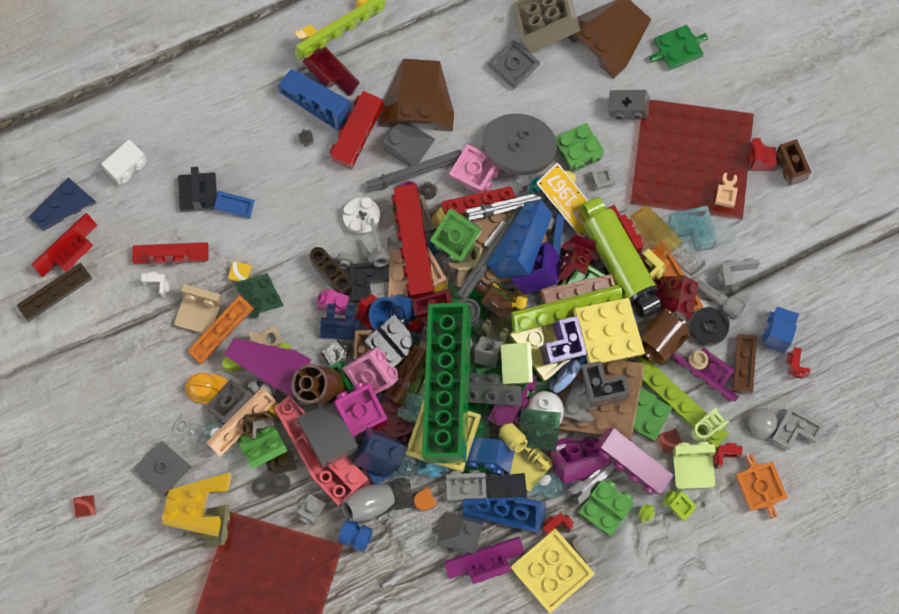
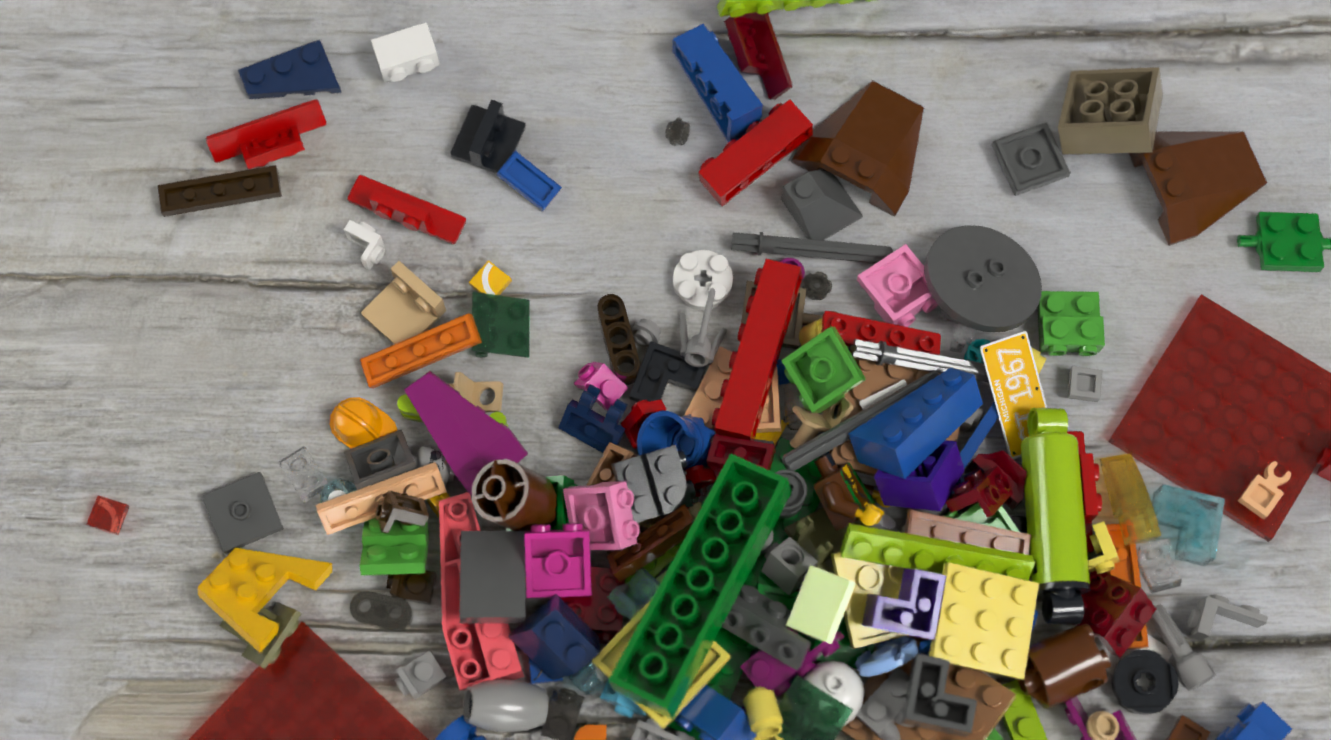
camera: 25 degrees right, 0 degrees up
(338, 351) = (572, 460): clear smoke bracket -> none
(628, 104) = (1174, 292): dark grey brick -> none

